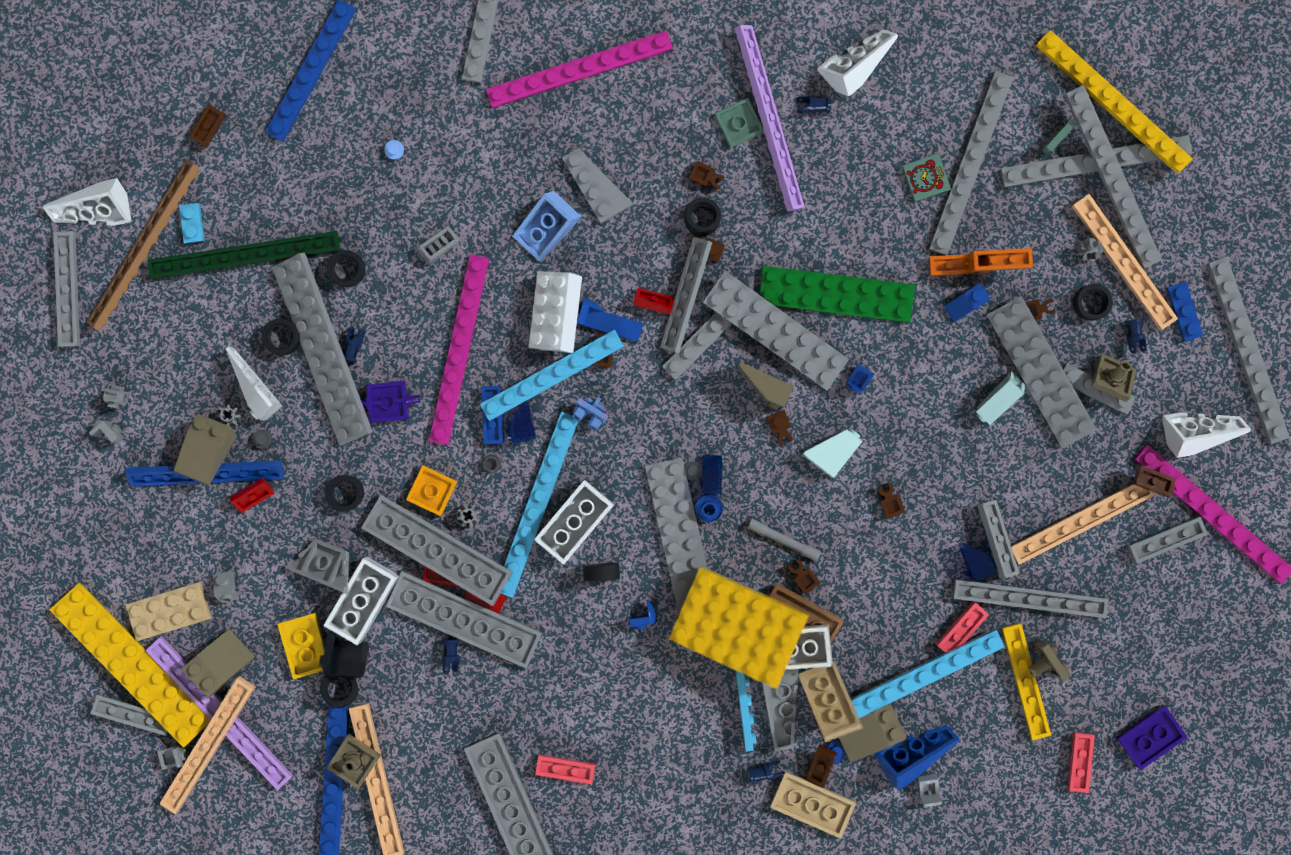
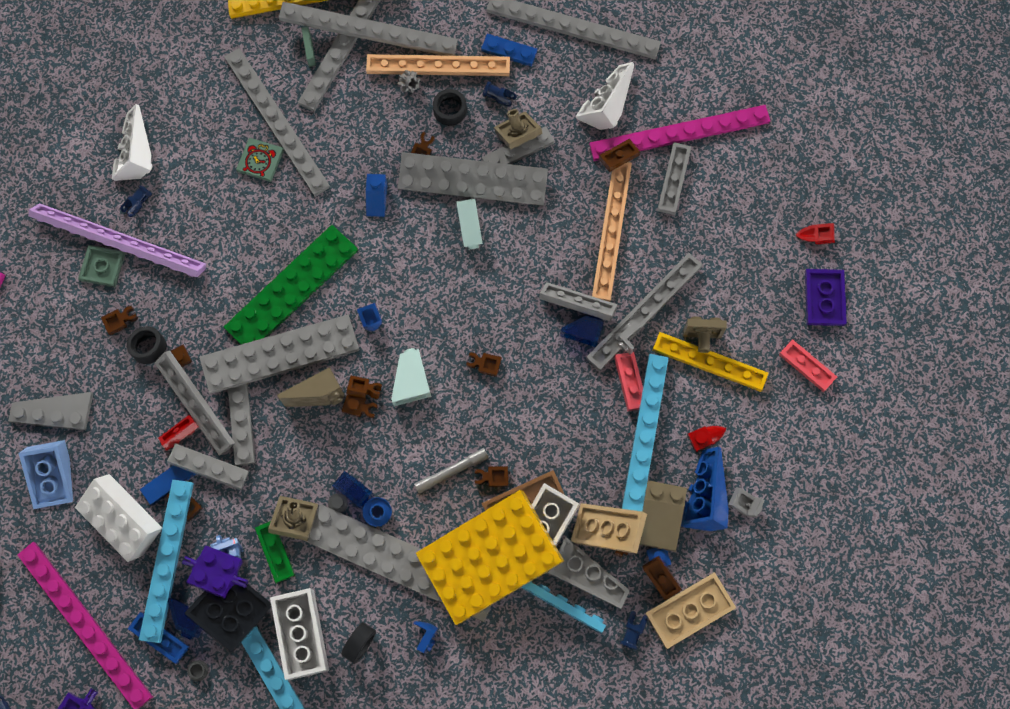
camera: 50 degrees left, 15 degrees down
(552, 454) = (229, 618): none -> black plate
(571, 422) = (215, 571): none -> dark purple plate
(584, 308) = (138, 495): blue plate -> none
(620, 451) = (275, 554): none -> green plate
(645, 347) = (208, 467): none -> light grey plate
(661, 444) = (295, 513): none -> dark tan plate
(796, 418) = (360, 387): none -> reddish brown plate
(960, 720) = (705, 436): none -> red plate
(980, 262) = (352, 163): orange bracket -> none
(1001, 601) = (627, 334): none -> light grey bracket
(1204, 693) = (818, 233): none -> red plate

